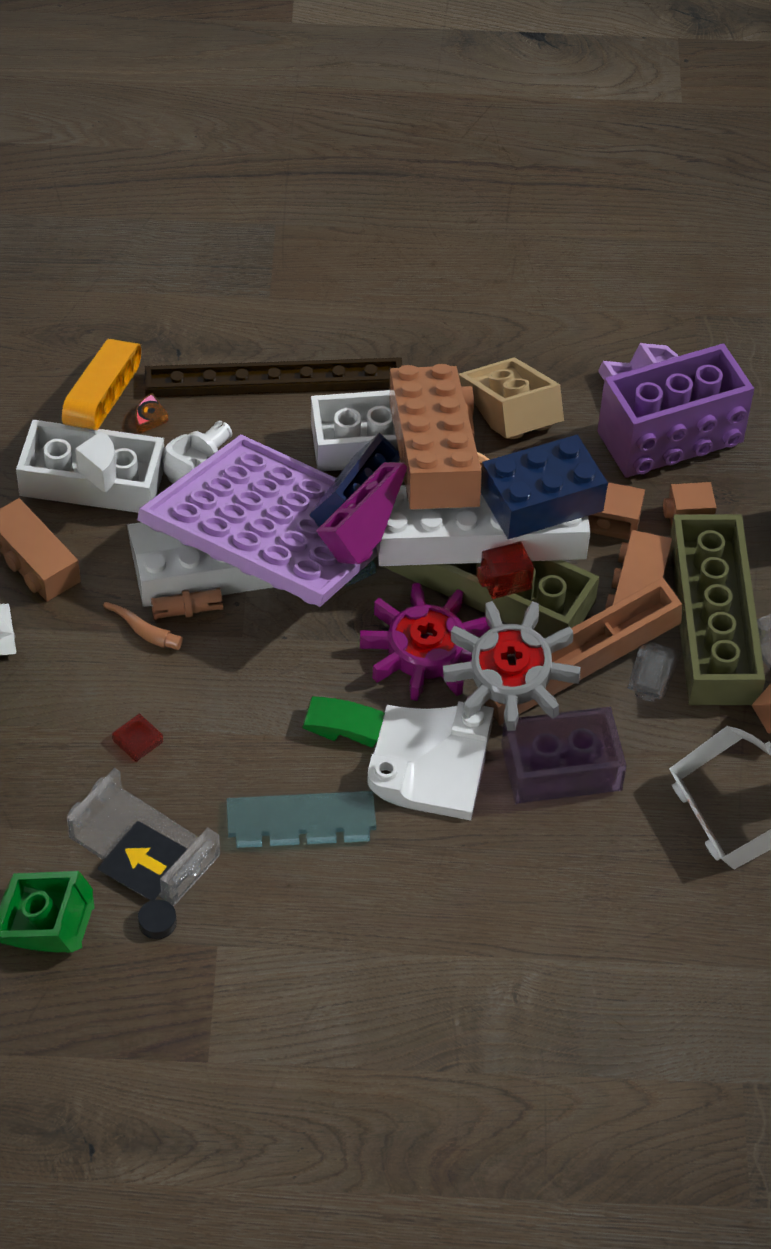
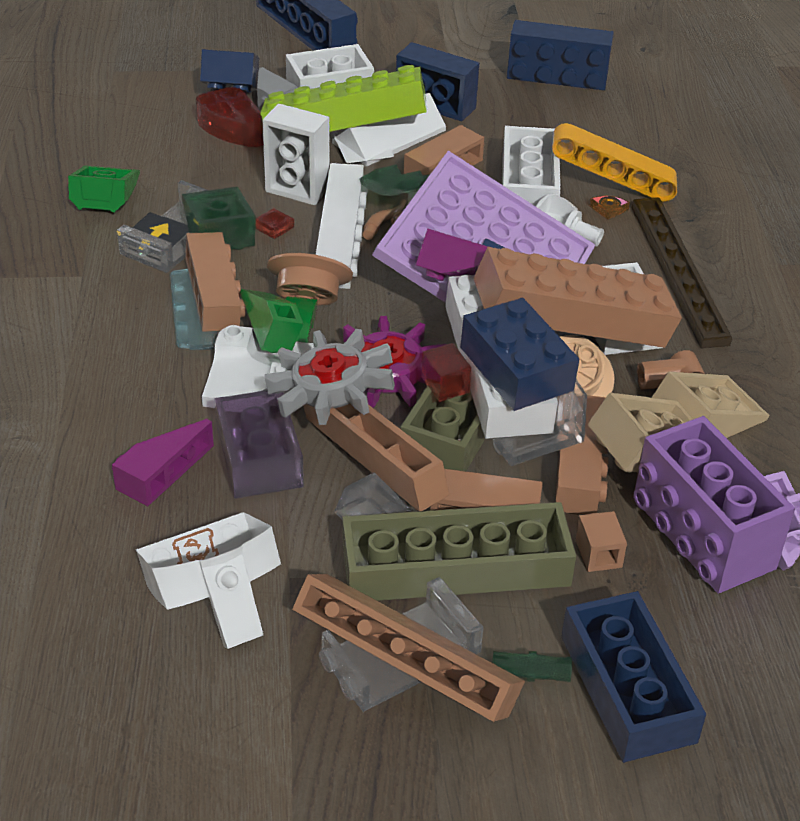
camera: 85 degrees right, 10 degrees down
(53, 680) = (296, 153): none -> white brick
(97, 461) = (513, 150): white brick -> none
(114, 590) = (391, 182): none -> clear green slope
(157, 778) = (223, 212): none -> clear green slope
(157, 919) = (103, 242): black tile -> none
(163, 664) = (343, 216): none -> white brick
(275, 792) = (213, 281): none -> nougat brick
(299, 690) = (309, 276): none -> nougat wheel
(371, 726) = (273, 320): none -> green slope
(582, 851) = (159, 461): none -> magenta slope
(600, 430) = (627, 419): none -> tan brick

